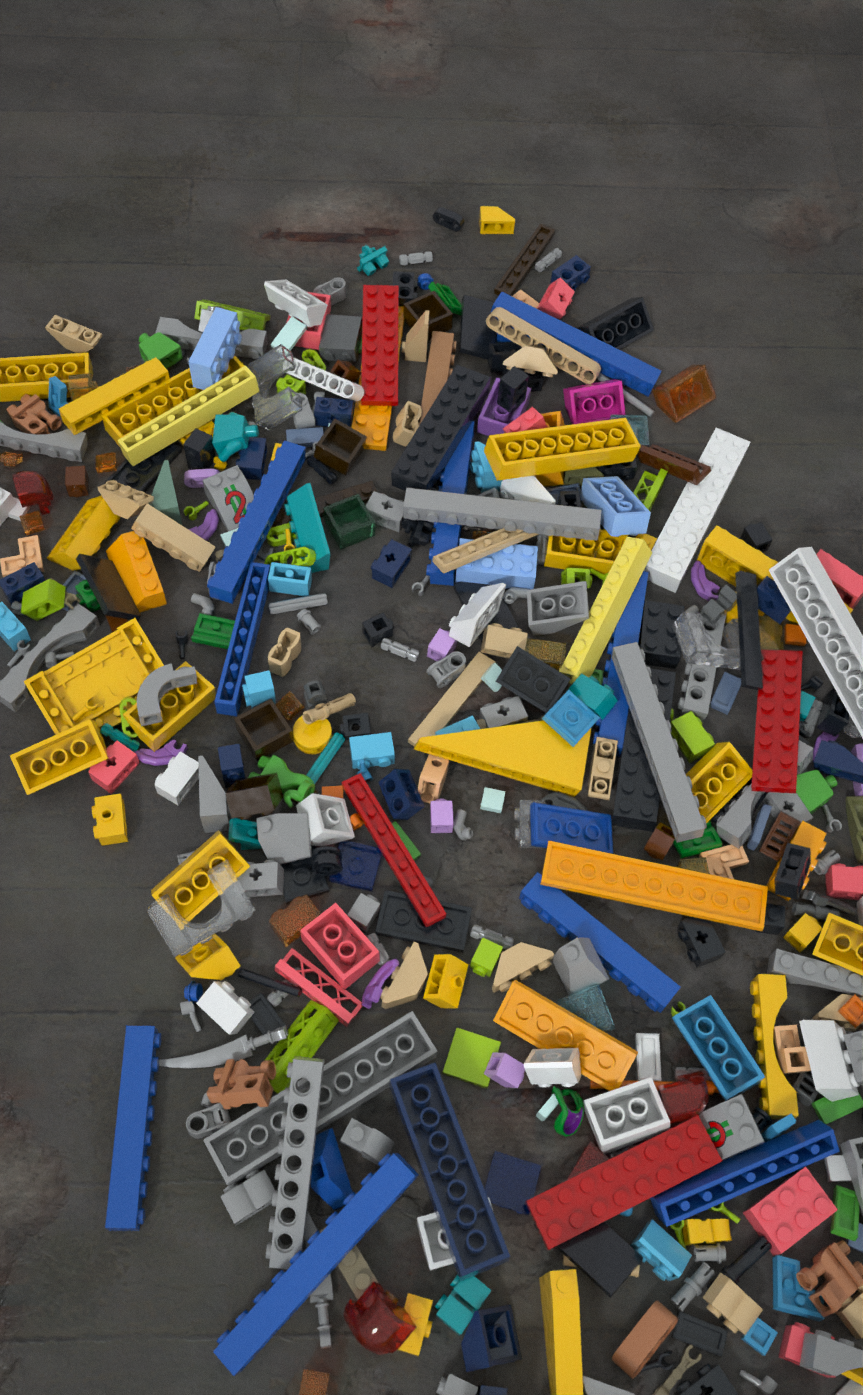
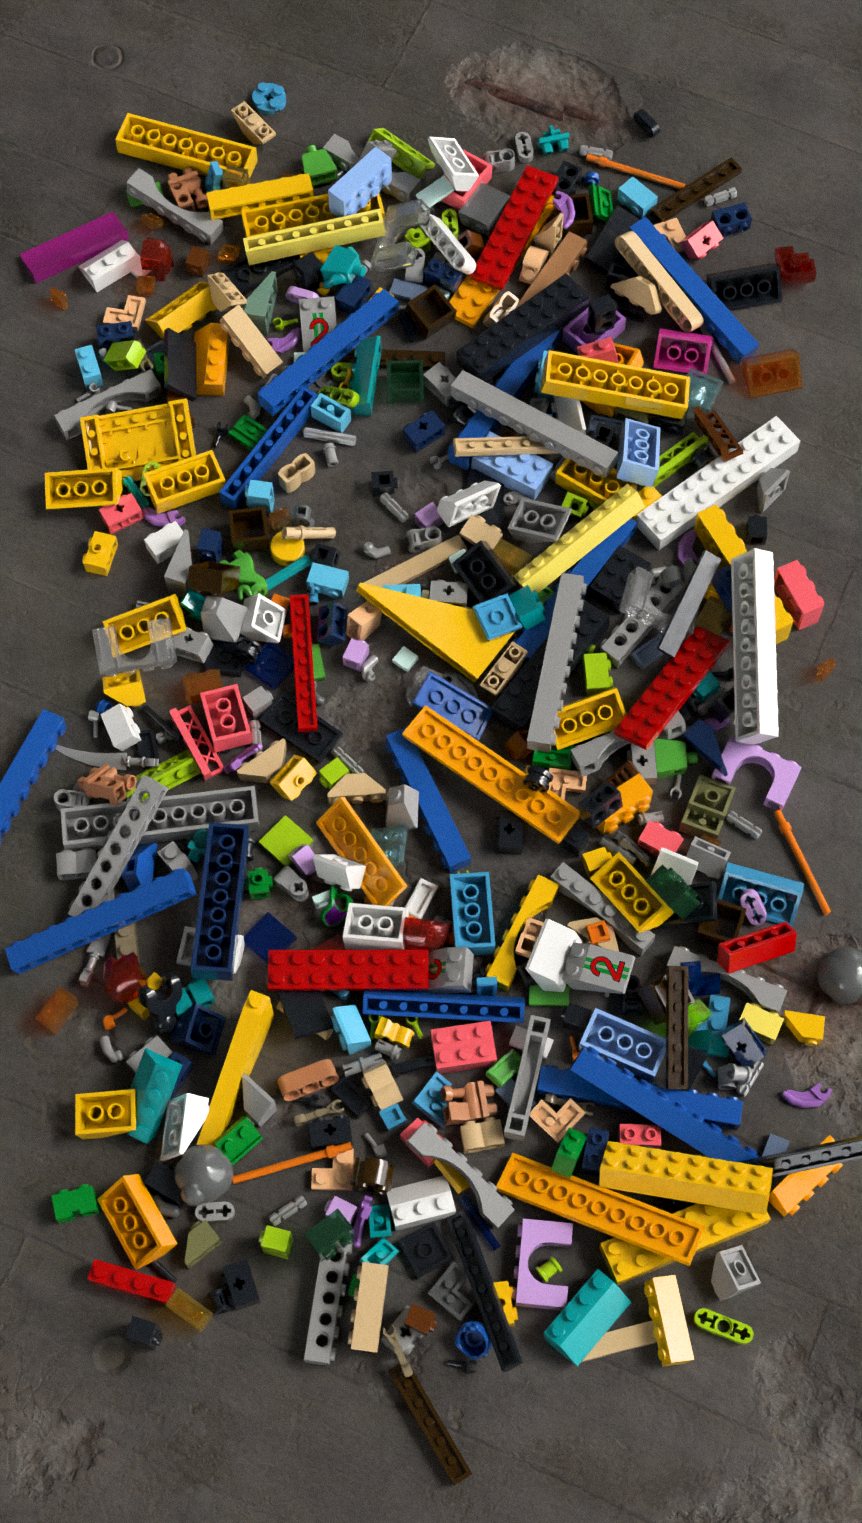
camera: 30 degrees right, 5 degrees up
(71, 301) = (269, 90): none -> dark azure plate
(156, 686) = (175, 462): light grey arch -> none
(351, 273) = (524, 147): none -> light grey beam
(379, 1381) = (108, 1020): none -> orange hand
(383, 1110) = (198, 845): none -> teal hips
(404, 702) = (374, 552): none -> light grey arm
(414, 373) = (533, 262): none -> light nougat brick
(419, 306) = (566, 206): none -> medium lavender piece
(427, 264) = (604, 162): none -> orange bar
(439, 1329) = (162, 1003): none -> black piece
(476, 283) = (637, 197): none -> medium azure brick
(477, 1116) = (258, 883): none -> green brick
(495, 221) = (689, 140): yellow slope -> none
(499, 1104) = (289, 882): none -> light grey piece
(654, 294) = (795, 267): none -> clear red brick
(671, 492) = (702, 458): none -> black wheel
(711, 871) = (538, 779): none -> black wheel
(745, 493) = (771, 486): none -> light grey slope
(758, 827) = (611, 767): sand blue tile -> none

